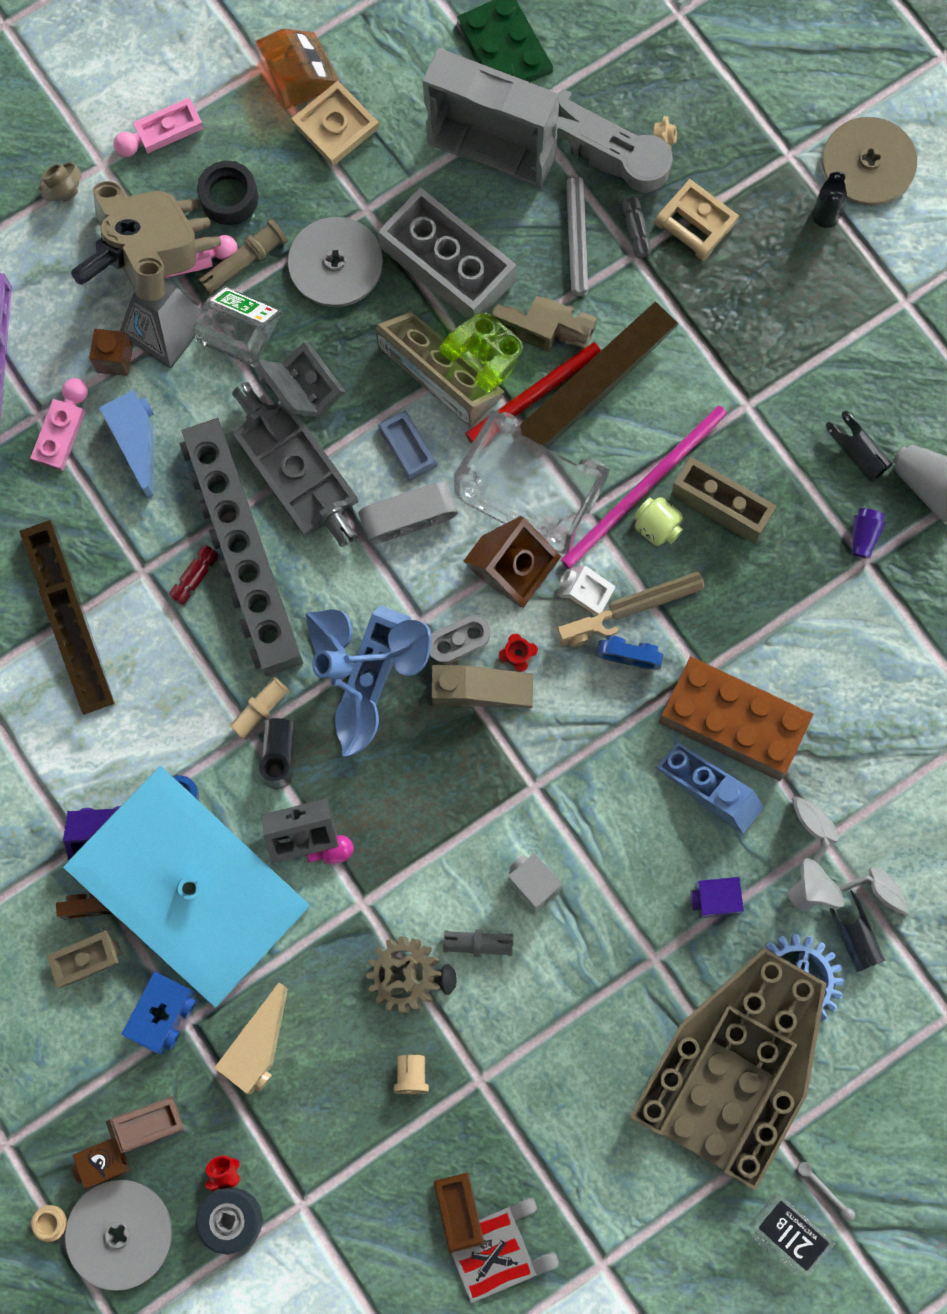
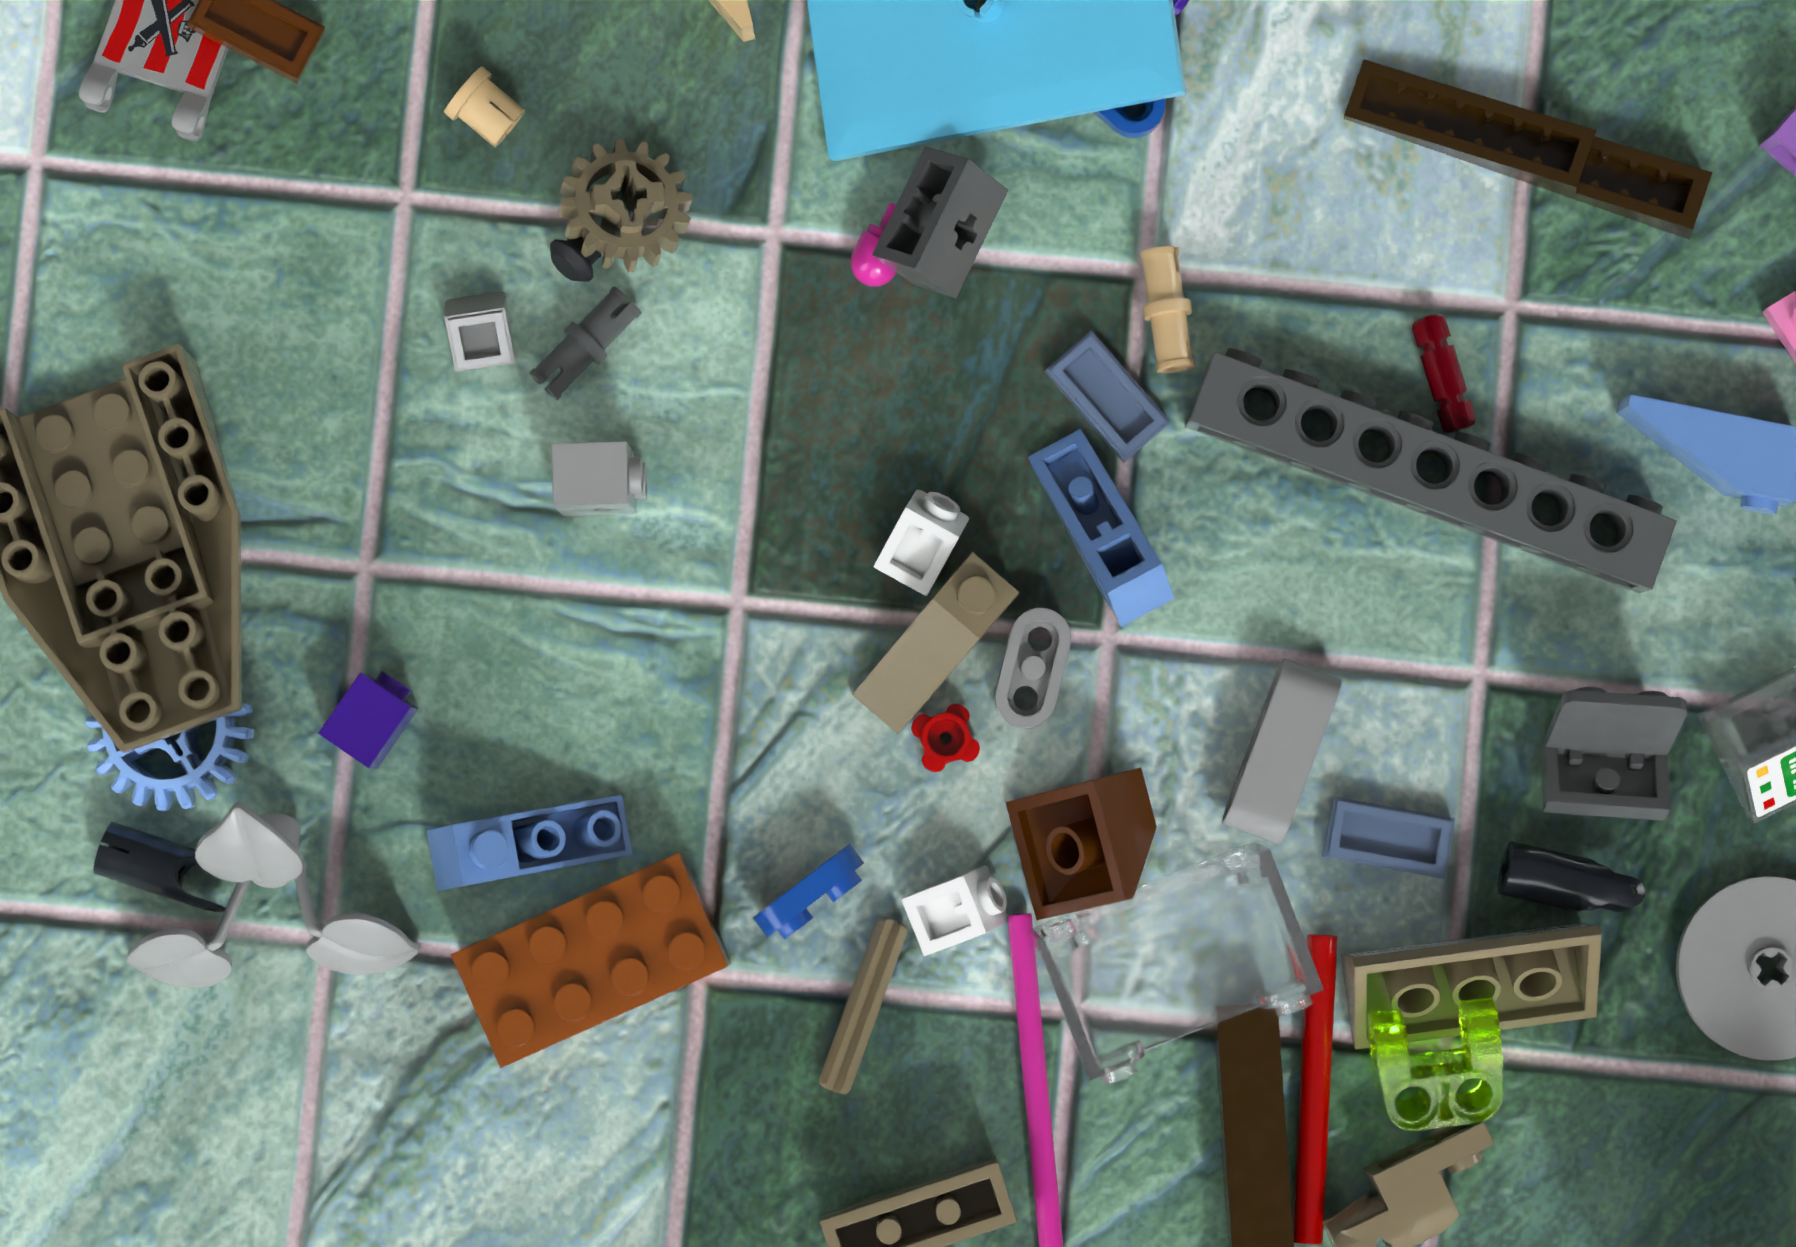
camera: 120 degrees right, 10 degrees up
(277, 750) = (1087, 287): black piece -> none
(294, 467) = (1486, 643): dark grey plate -> none
(316, 707) = (1107, 396): none -> sand blue tile
(330, 633) = (1185, 490): medium blue plant -> none
(367, 364) = (1565, 880): none -> black piece
(443, 728) = (922, 540): none -> white bracket
(447, 255) = (1635, 1136): light grey brick -> none
(511, 996) = (479, 331): none -> light grey slope
(579, 631) = (899, 844): tan plate -> none
(658, 521) = (967, 1101): yellowish green head -> none

